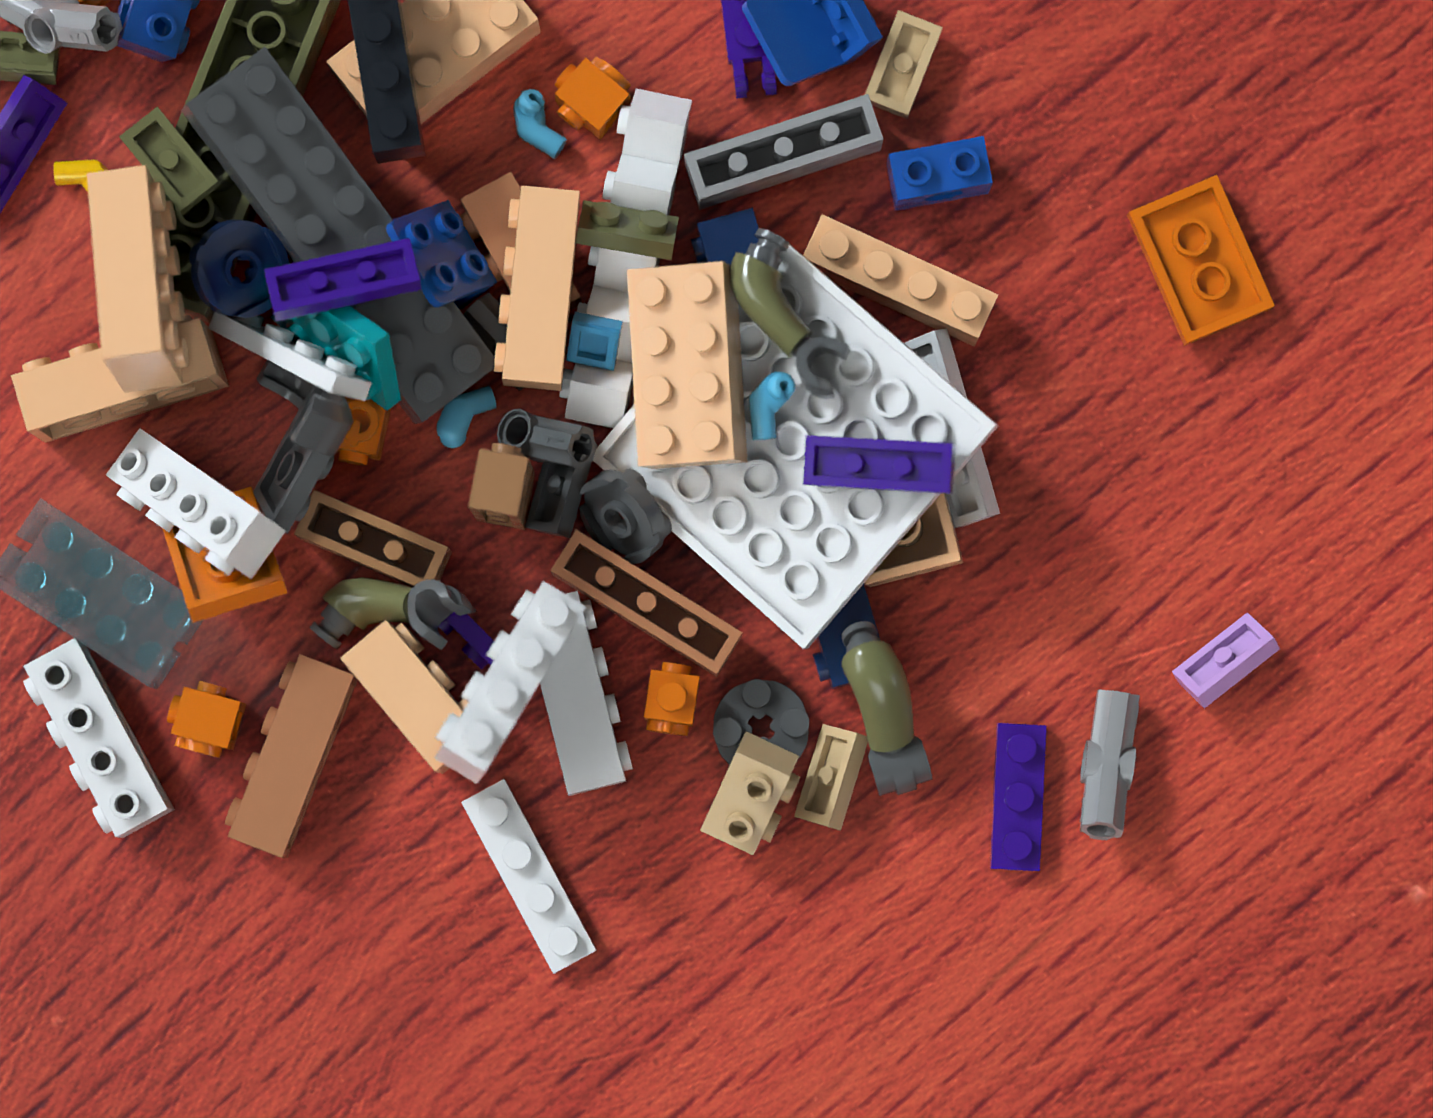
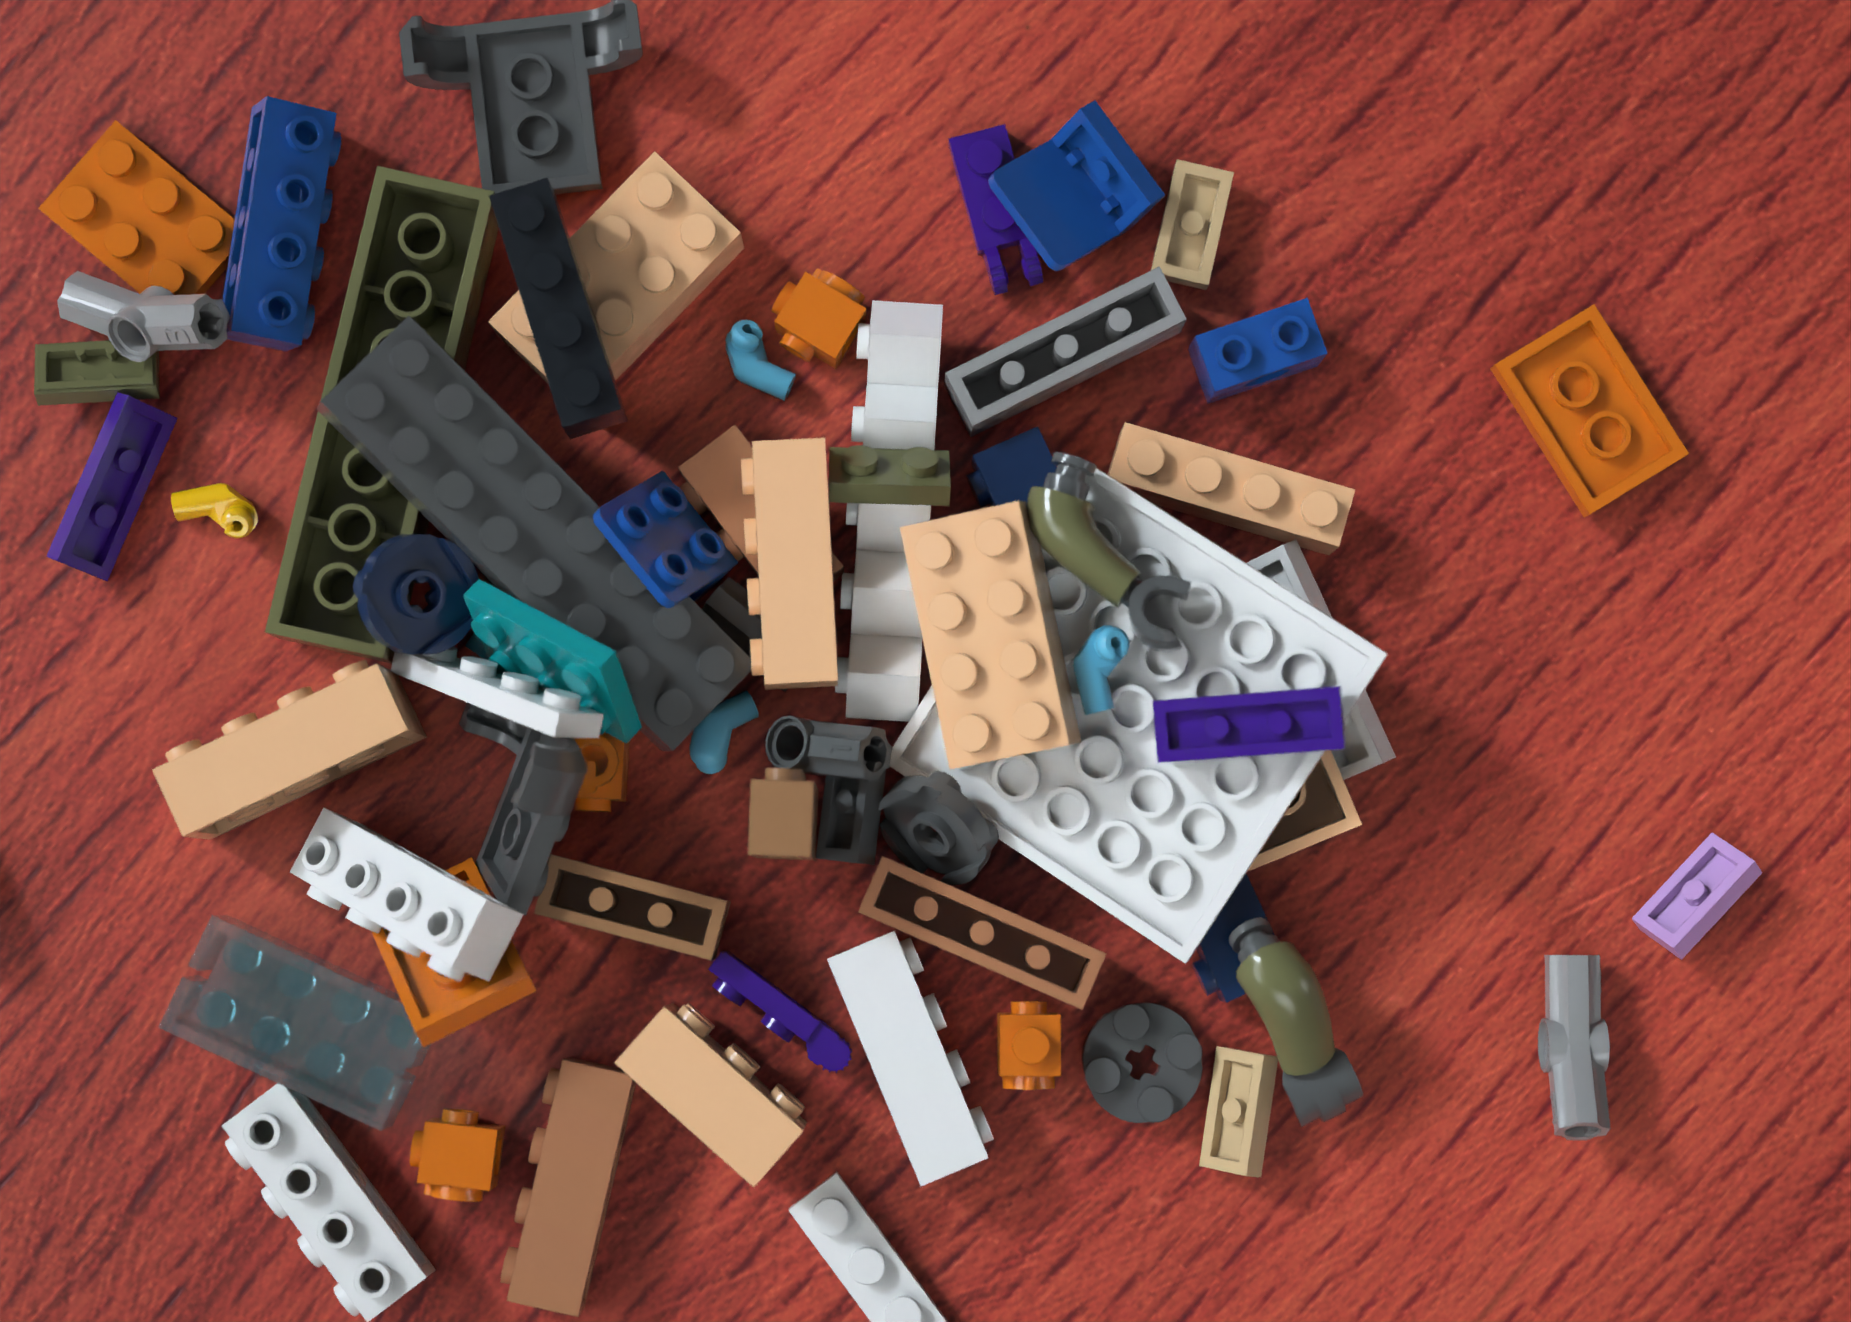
camera: 15 degrees left, 0 degrees up
(136, 279) = (290, 629): light nougat brick -> none
(170, 160) = (311, 473): olive plate -> none
(342, 279) = (548, 591): dark purple plate -> none
(374, 600) = (639, 979): piece -> none
(510, 682) = (830, 1065): white brick -> none
(594, 341) = (869, 618): dark azure tile -> none
(750, 794) = (1145, 1149): tan brick -> none
(1018, 797) = (1468, 1101): dark purple plate -> none

